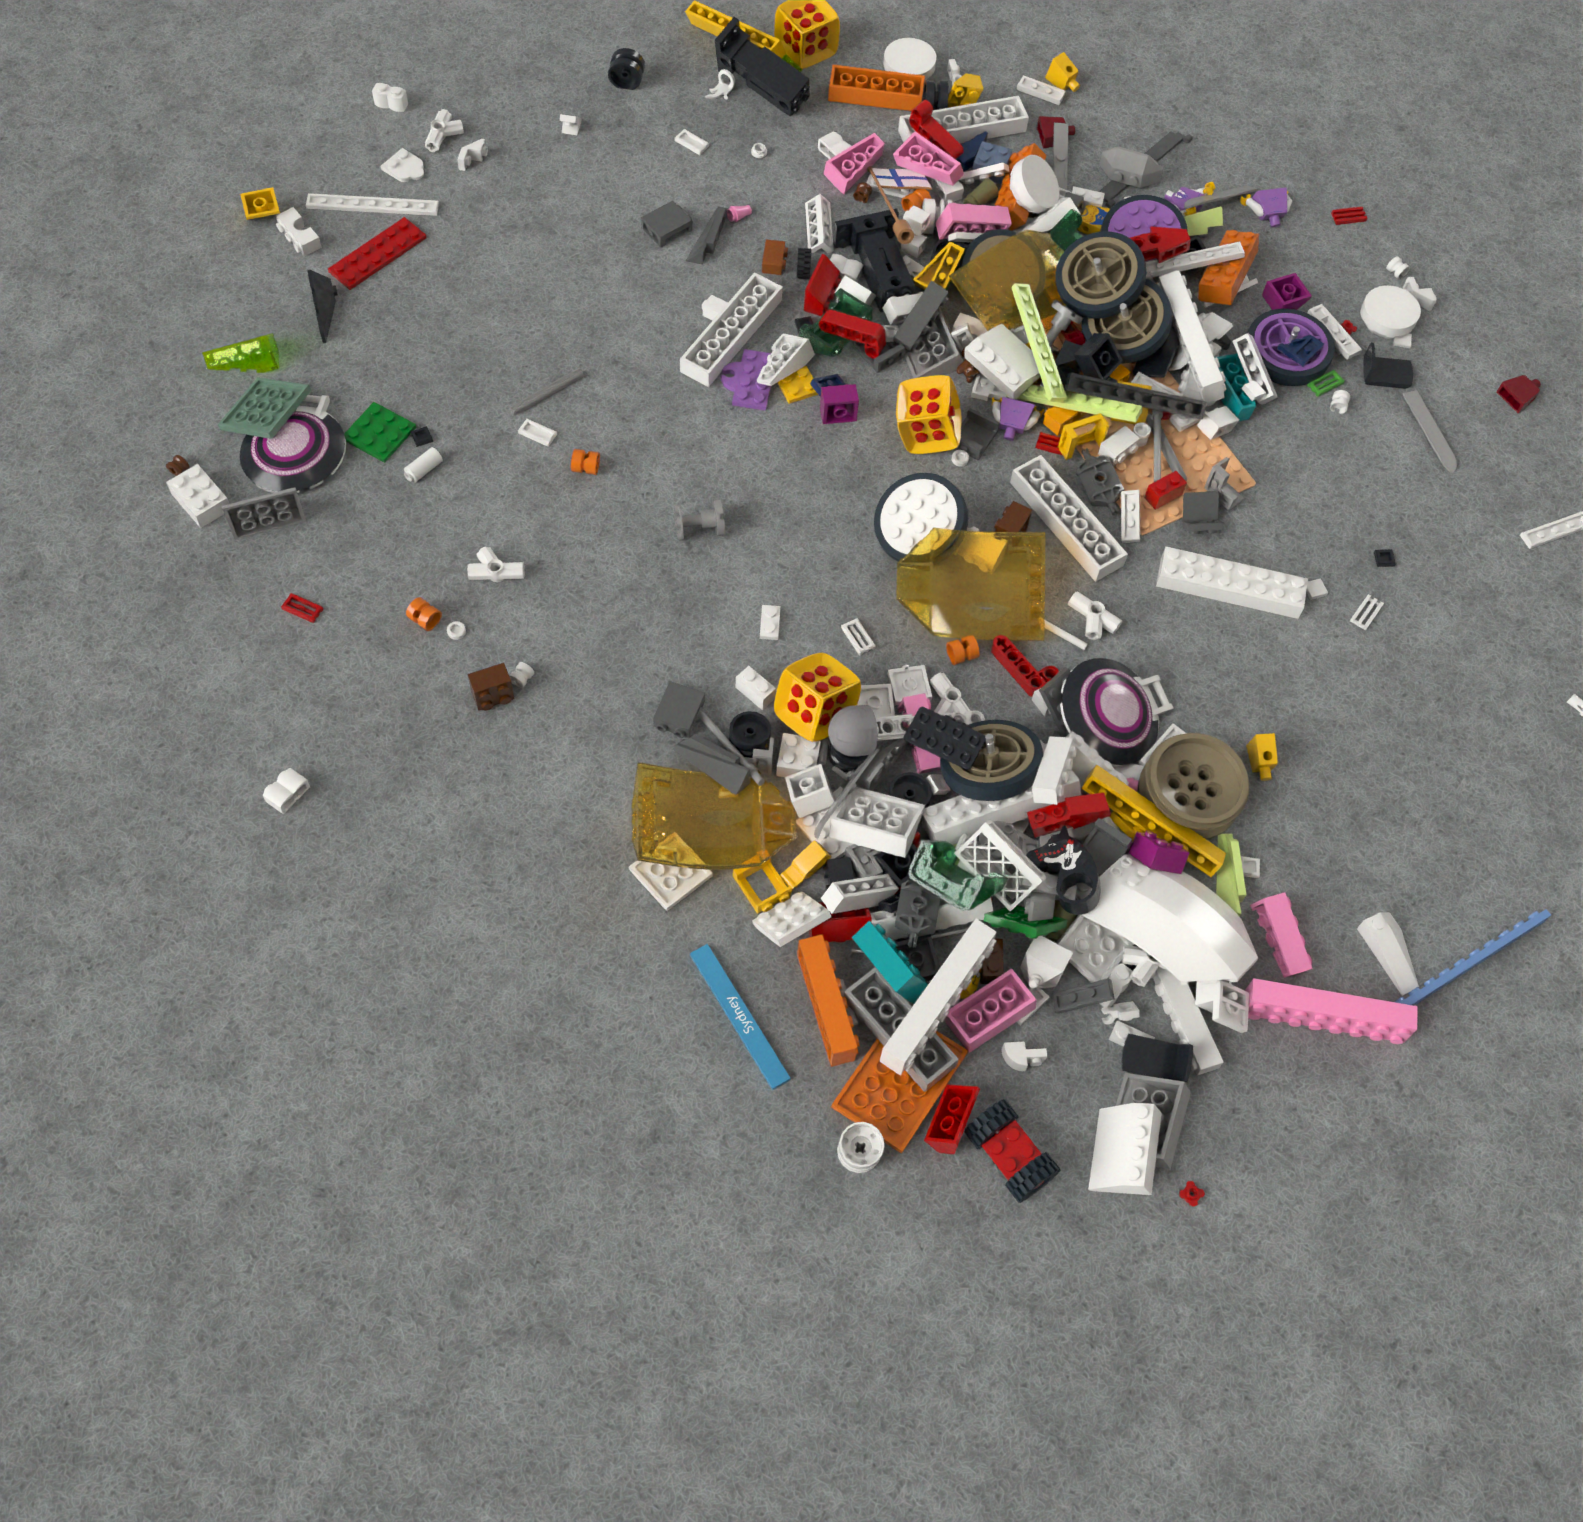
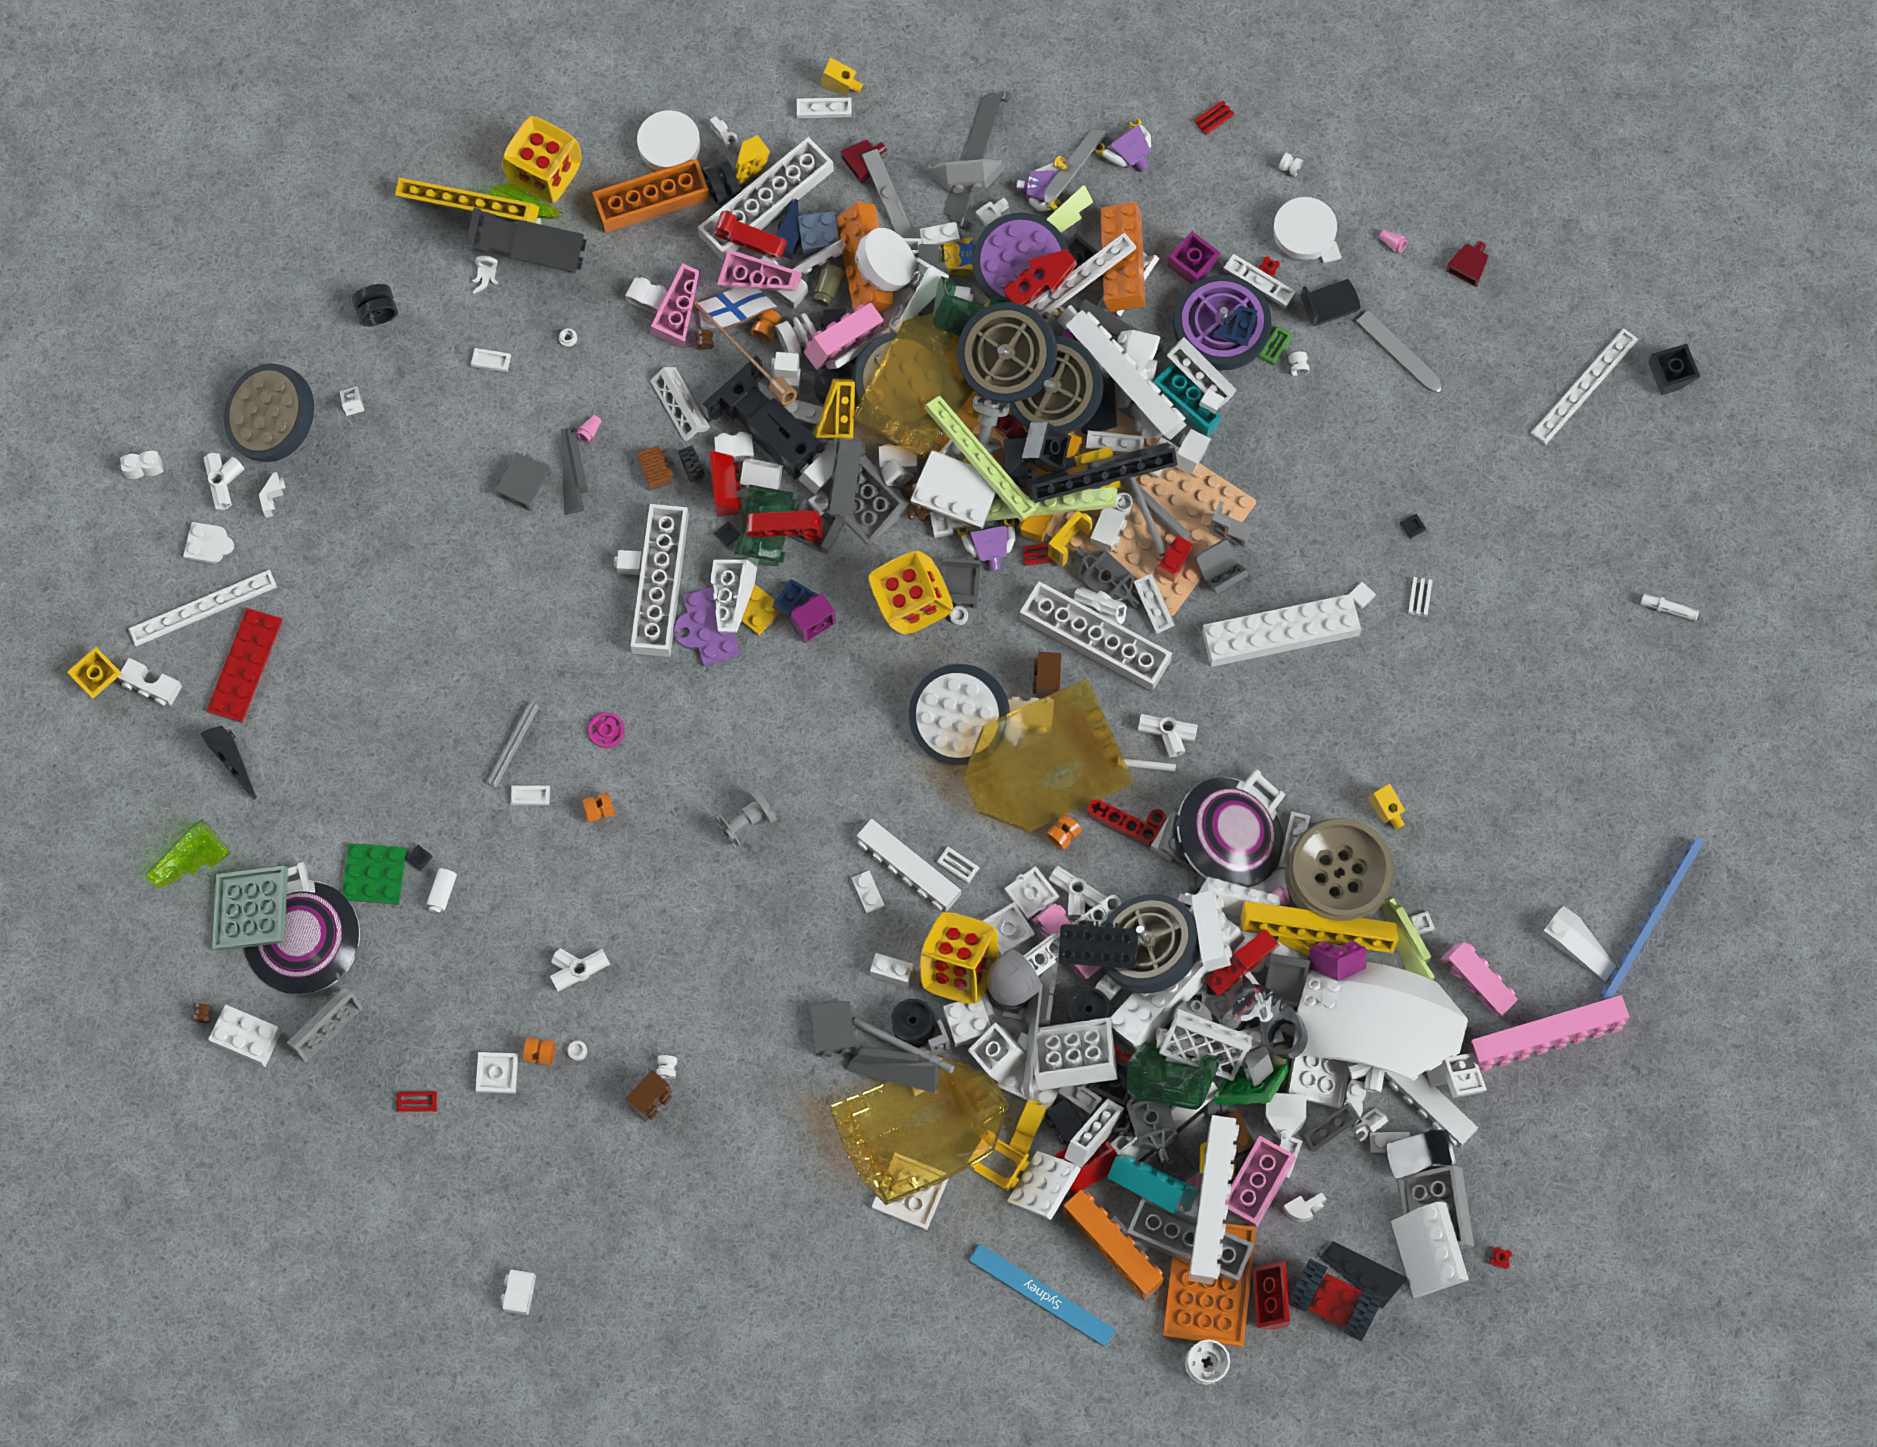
camera: 20 degrees left, 10 degrees up
(379, 615) = (497, 1072): none -> white plate
(503, 98) = (269, 412): none -> dark tan wheel
(626, 415) = (606, 730): none -> dark pink wheel
(815, 614) = (908, 865): none -> white brick
(1051, 1139) = (1363, 1271): none -> black wing
(1088, 496) = (1102, 604): none -> white piece
(1425, 297) = (1330, 191): white slope -> none
(1461, 352) = (1393, 240): none -> bright pink cone

